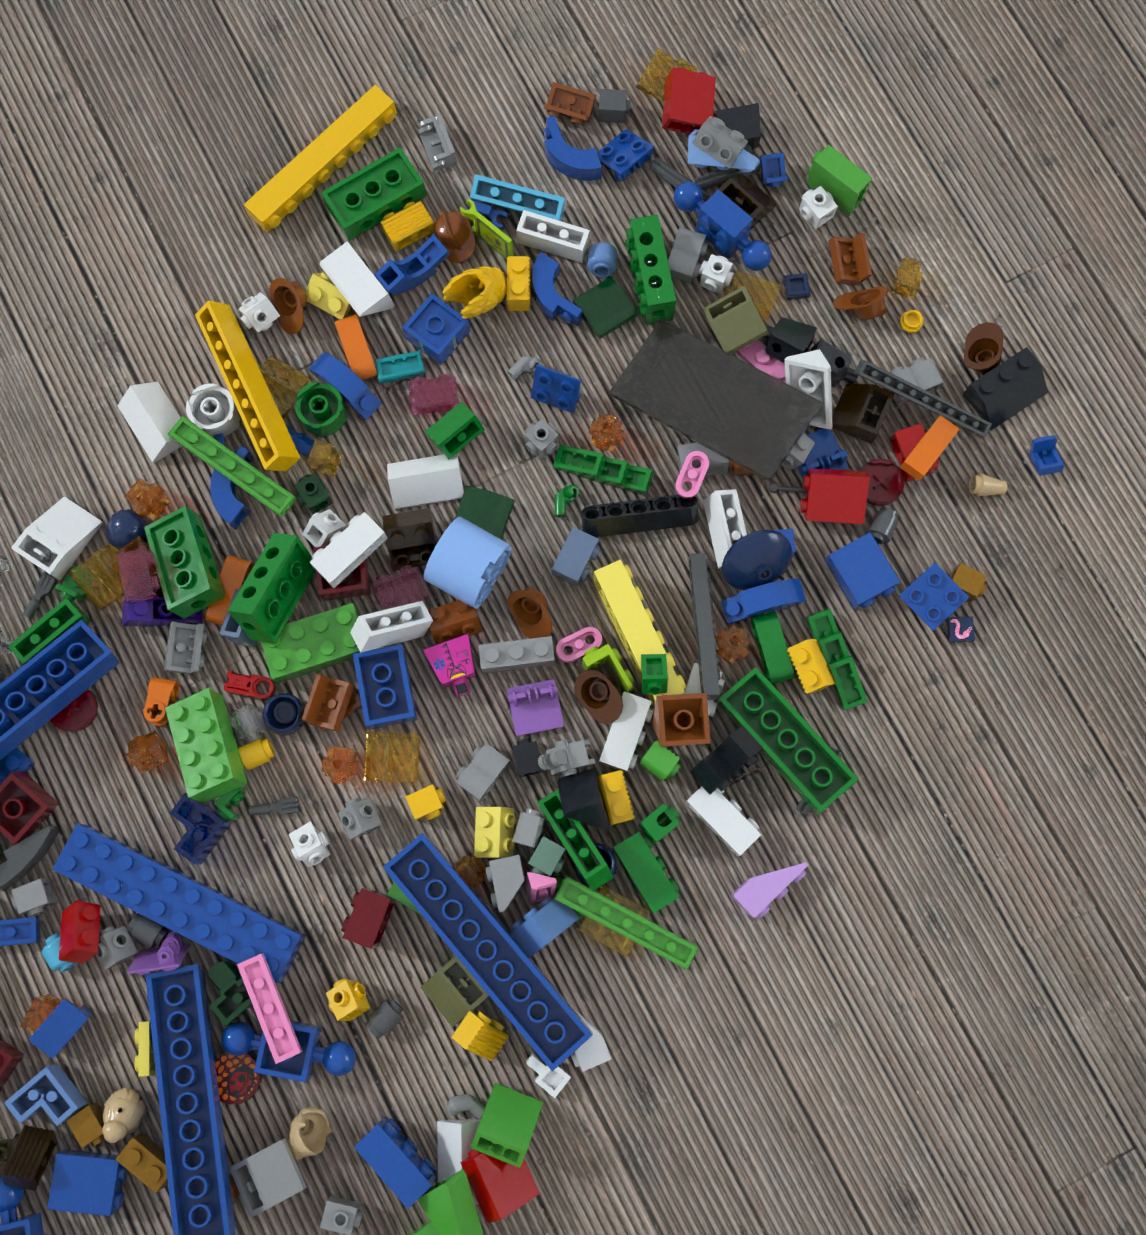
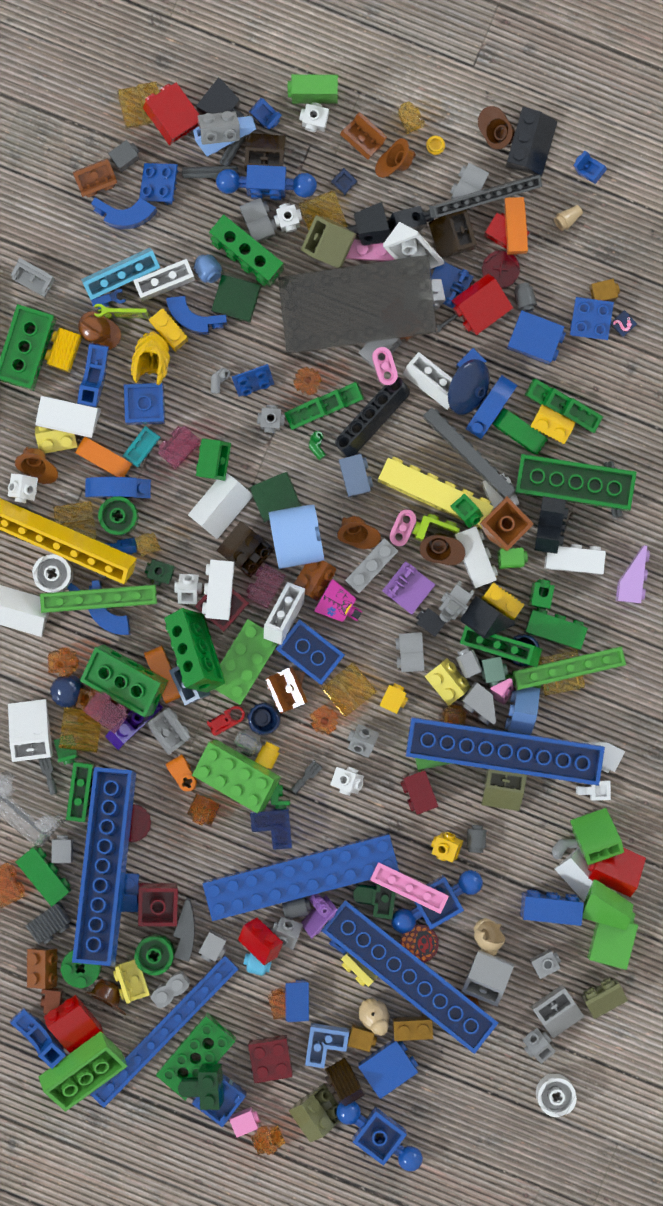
camera: 40 degrees left, 10 degrees up
(481, 1035) = (540, 801): yellow brick -> none
(727, 650) = (490, 455): clear orange brick -> none

